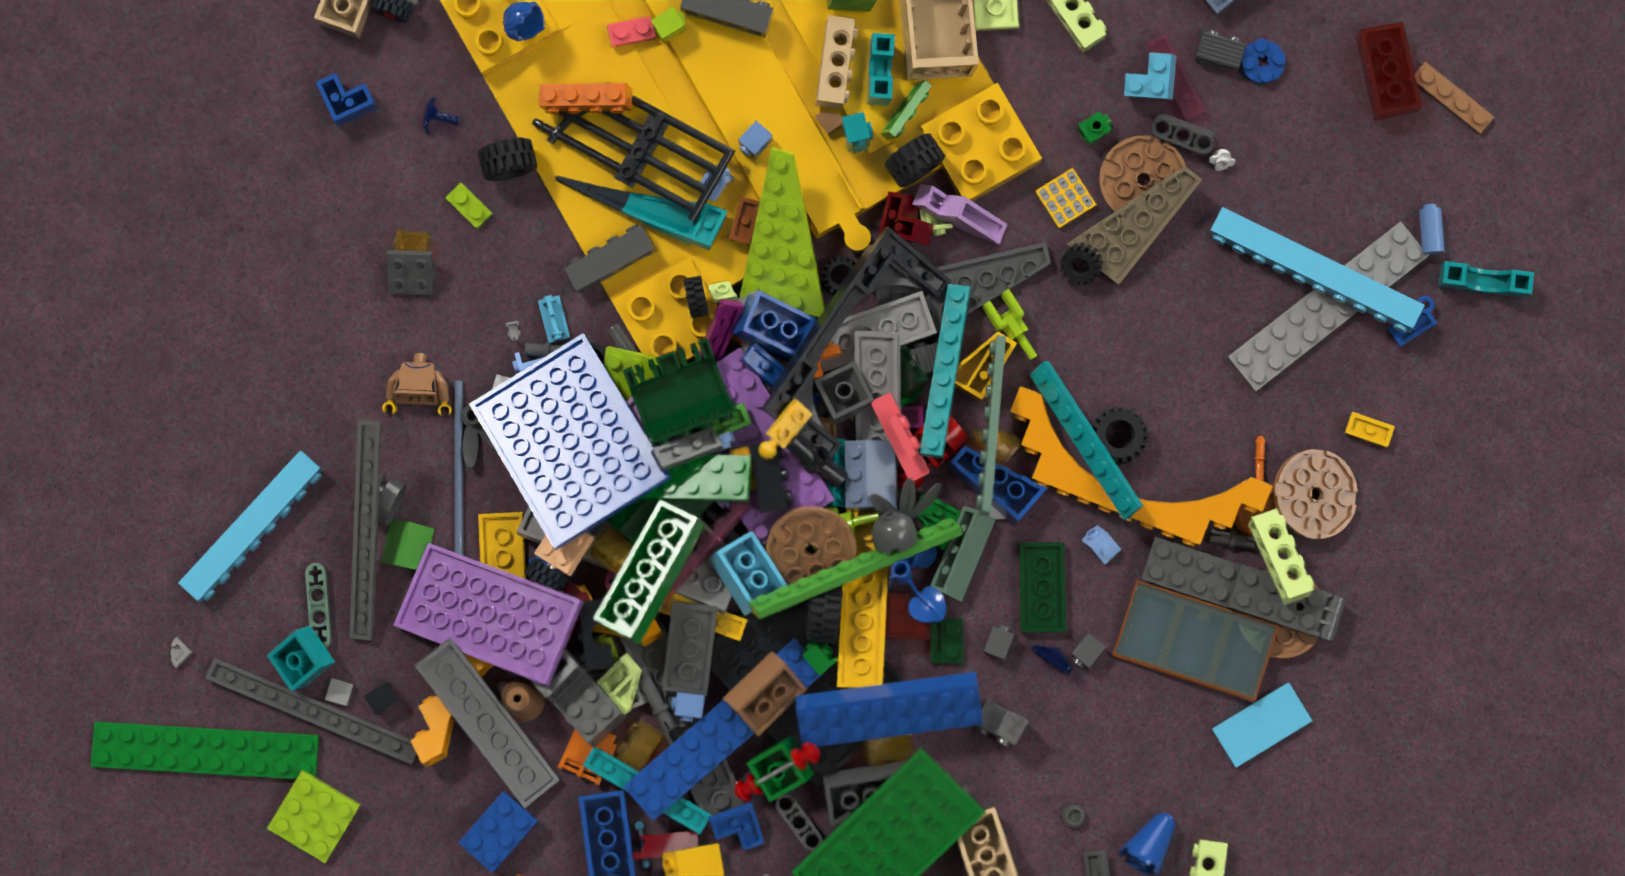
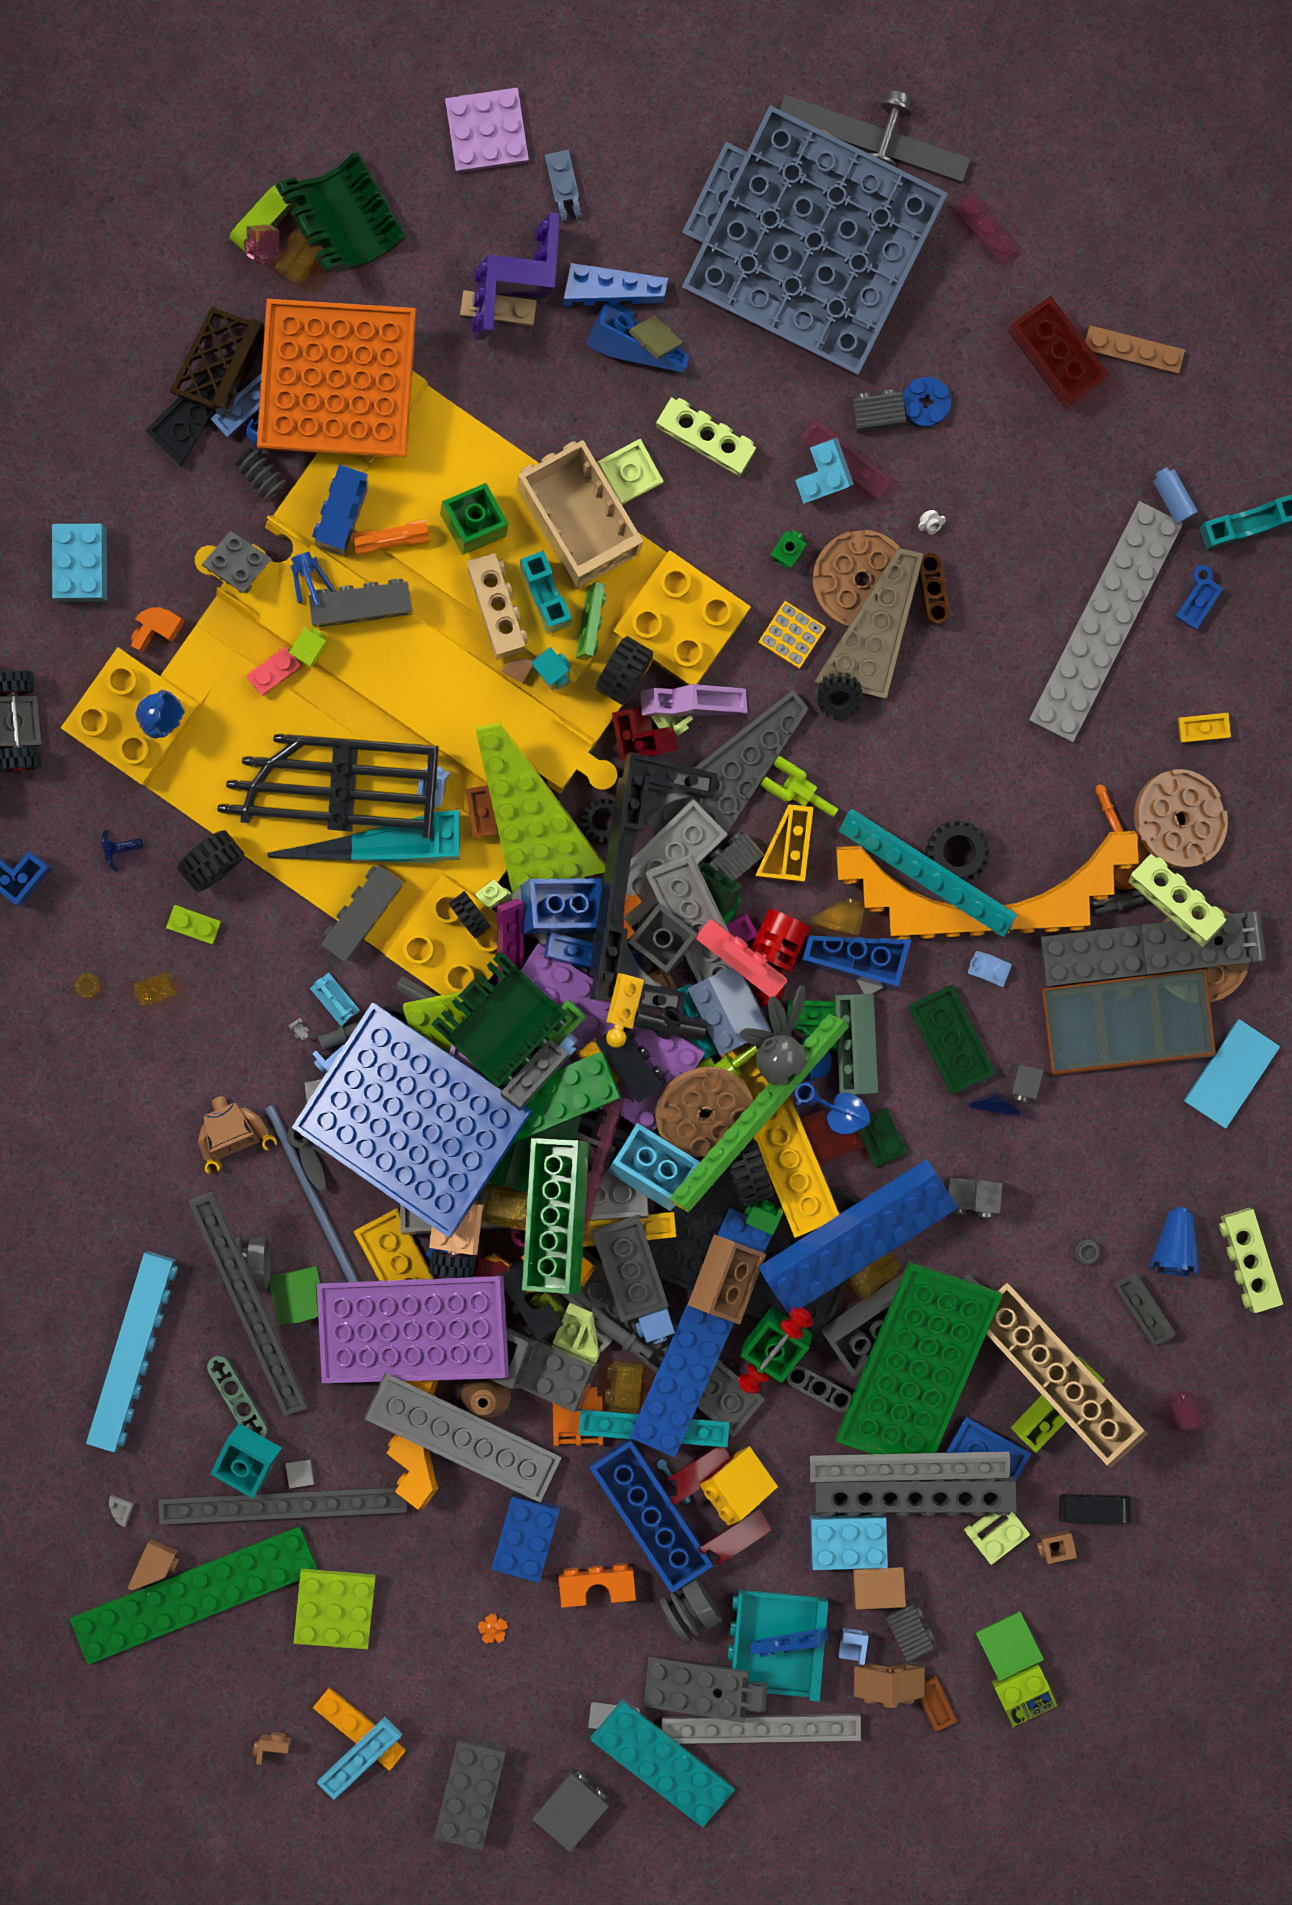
camera: 25 degrees left, 5 degrees up
(185, 709) = (154, 1564): none -> medium nougat slope
(359, 214) = (87, 985): none -> clear yellow plate
(381, 698) = (345, 1461): black panel -> none
(410, 272) = (167, 1020): dark grey plate -> none
(585, 97) = (260, 761): orange brick -> none
(740, 821) = (761, 1414): blue plate -> none
(755, 140) = (452, 725): medium blue brick -> none
(945, 371) = (755, 869): teal plate -> none
(990, 434) = (831, 914): sand green plate -> none
(998, 641) = (933, 1114): dark grey brick -> none
(1190, 142) = (890, 520): dark grey beam -> none
(1203, 205) = (930, 601): none -> reddish brown beam
(1316, 270) = (1079, 592): medium azure brick -> none

